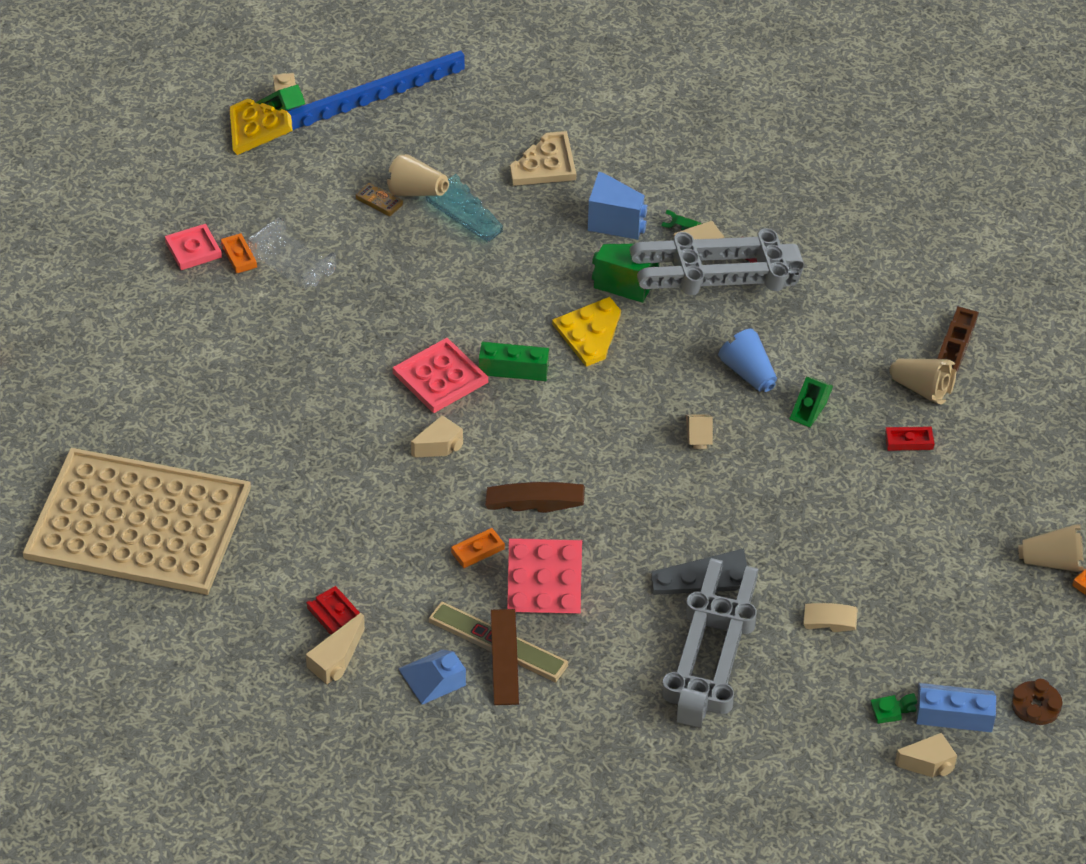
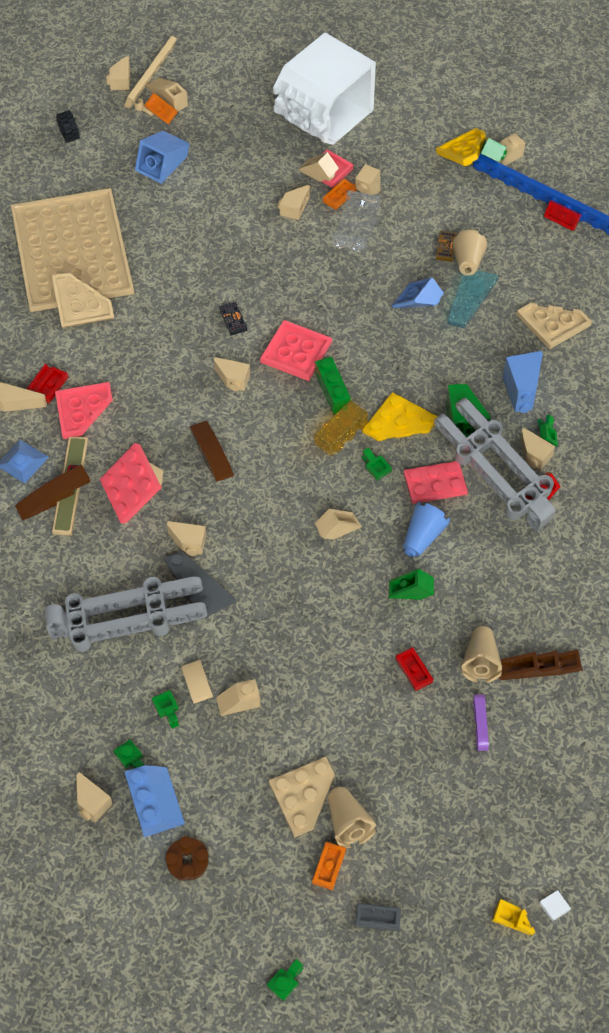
camera: 65 degrees right, 10 degrees up
(57, 383) = (160, 155): none -> medium blue slope
(96, 186) = (326, 89): none -> white container
(196, 248) = (320, 167): none -> tan slope
(225, 294) = (294, 202): none -> tan slope
(237, 536) = (79, 302): none -> tan plate
(250, 214) = (368, 180): none -> tan slope
(353, 413) = (233, 318): none -> tile
(393, 593) = (81, 407): none -> coral plate
(408, 93) = (562, 215): none -> red plate
(434, 245) = (419, 294): none -> medium blue slope
(477, 548) = (147, 438): orange plate -> none
(575, 377) = (341, 428): none -> clear yellow brick
(640, 558) = (188, 537): none -> tan slope
(641, 368) = (376, 465): none -> green plate
(689, 334) = (435, 482): none -> coral plate
(846, 654) = (166, 706): none -> green plate
(871, 587) = (239, 698): none -> tan slope
(1007, 410) = (481, 722): none -> medium lavender beam
(1007, 582) = (303, 794): none -> tan plate

